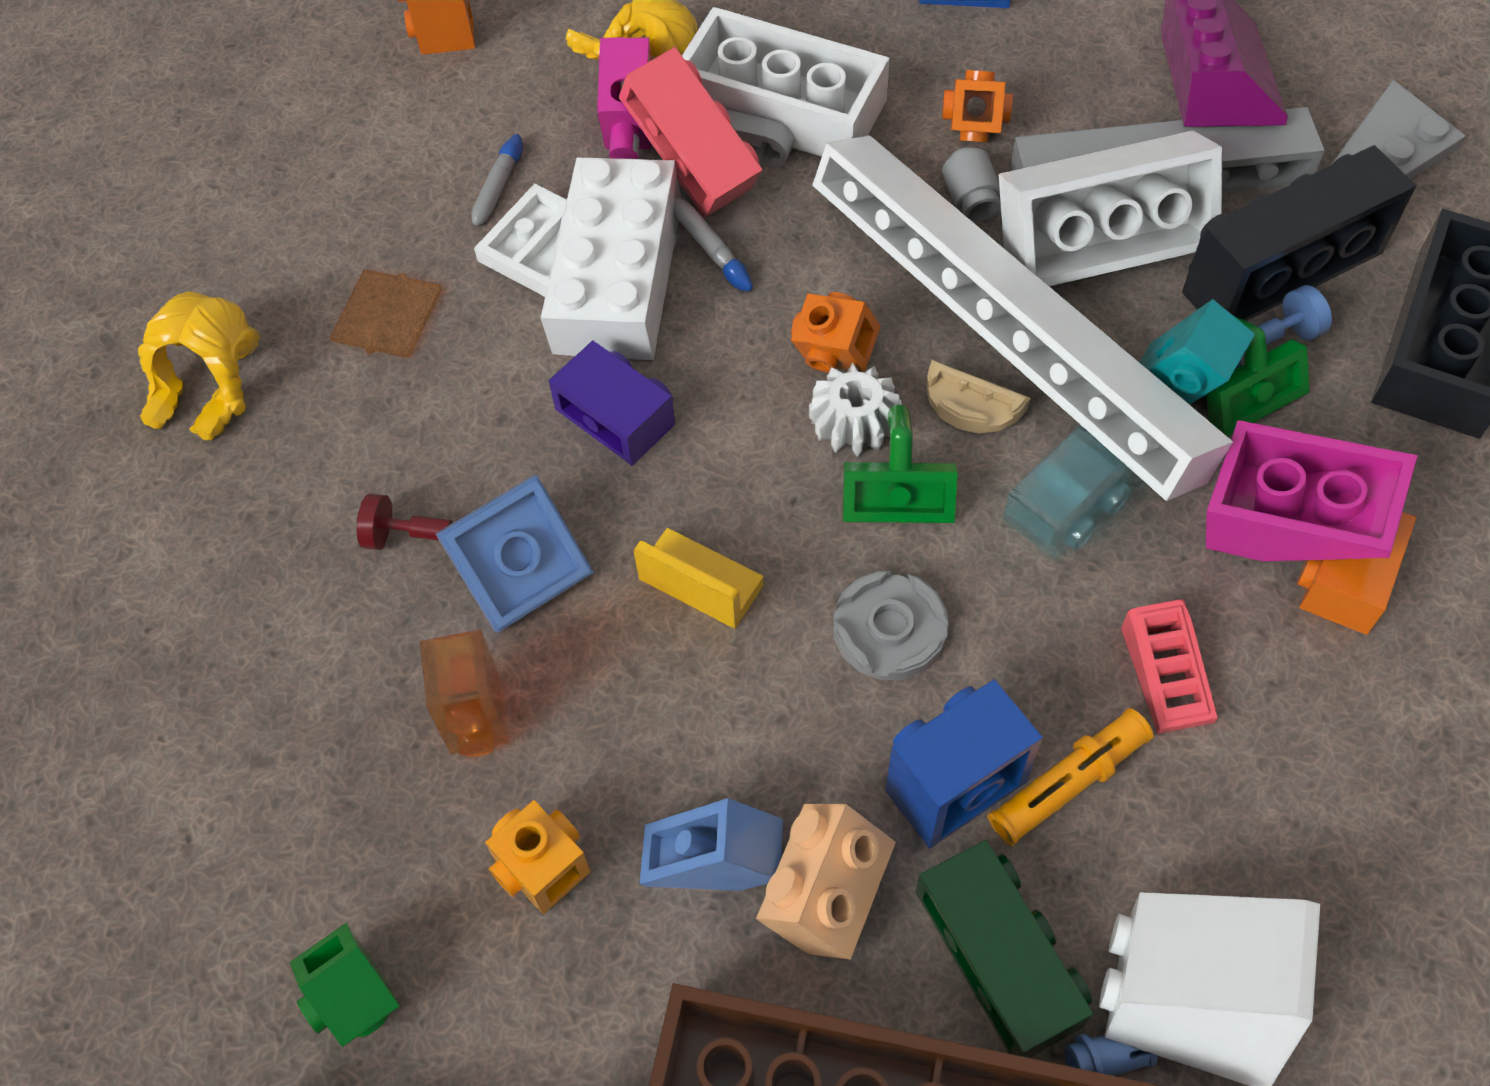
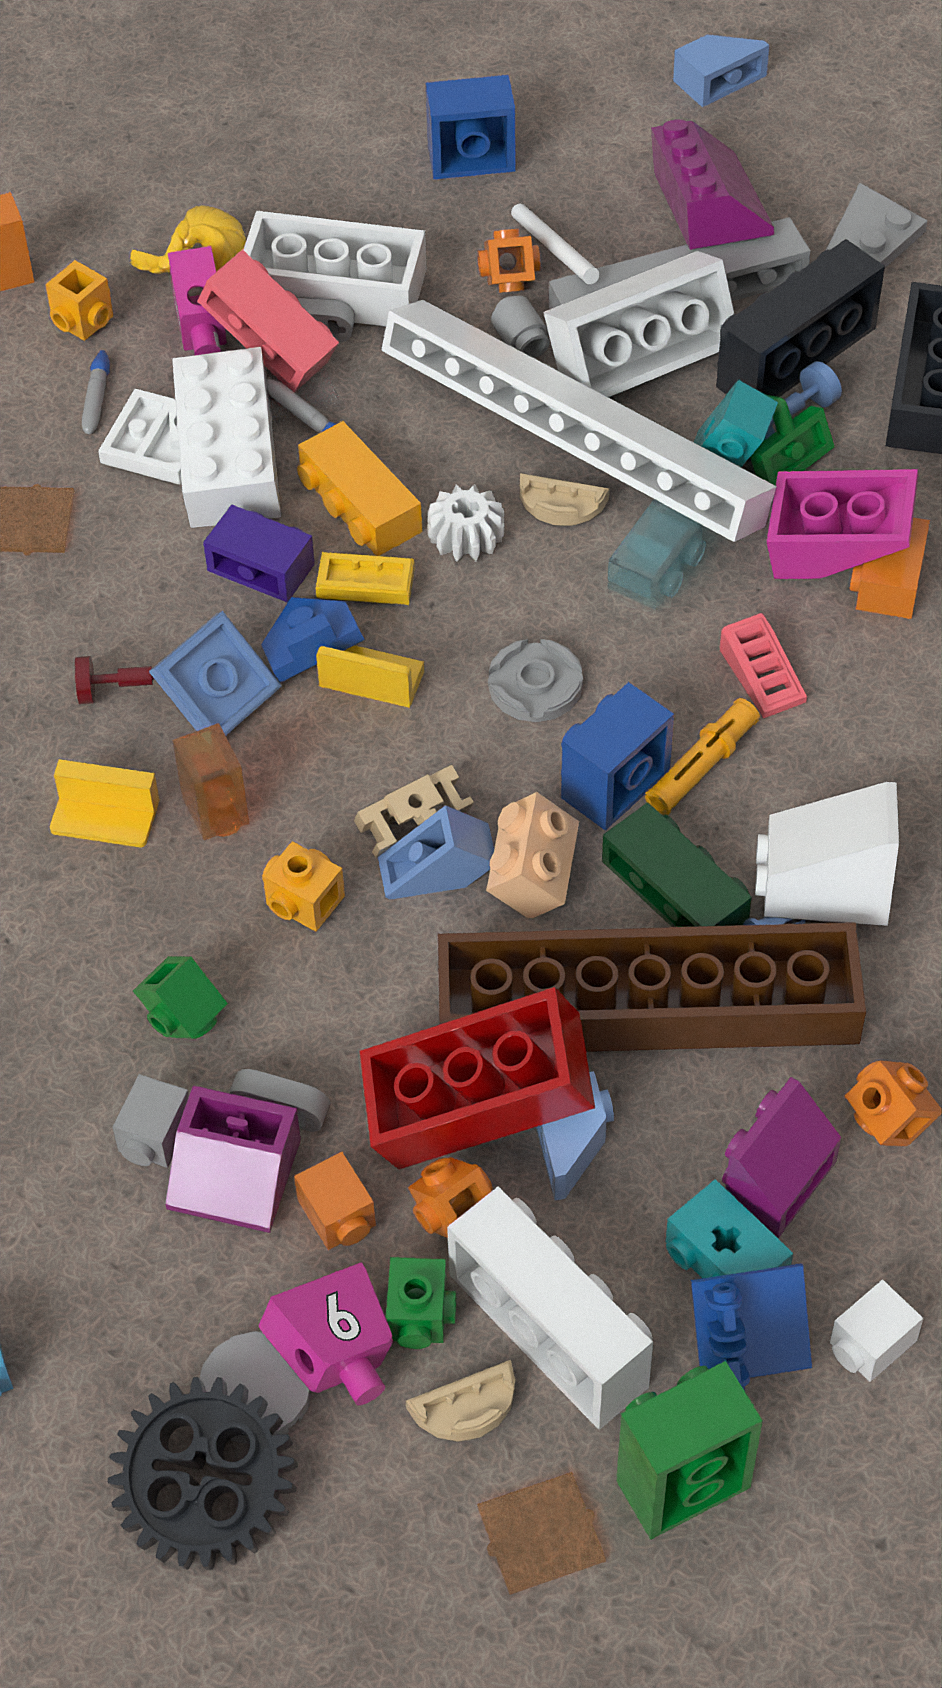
camera: 15 degrees left, 5 degrees down
(348, 687) = (104, 803): none -> yellow panel
(504, 75) = (79, 300): none -> light orange brick
(637, 509) = (304, 628): none -> blue plate
(712, 757) = (411, 802): none -> tan piece
(724, 455) = (365, 578): none -> yellow plate
(744, 346) = (359, 489): none -> light orange brick
(834, 332) = (433, 463): orange brick -> none
(899, 488) = (520, 575): green plate -> none
(1034, 97) = (555, 244): none -> white bar

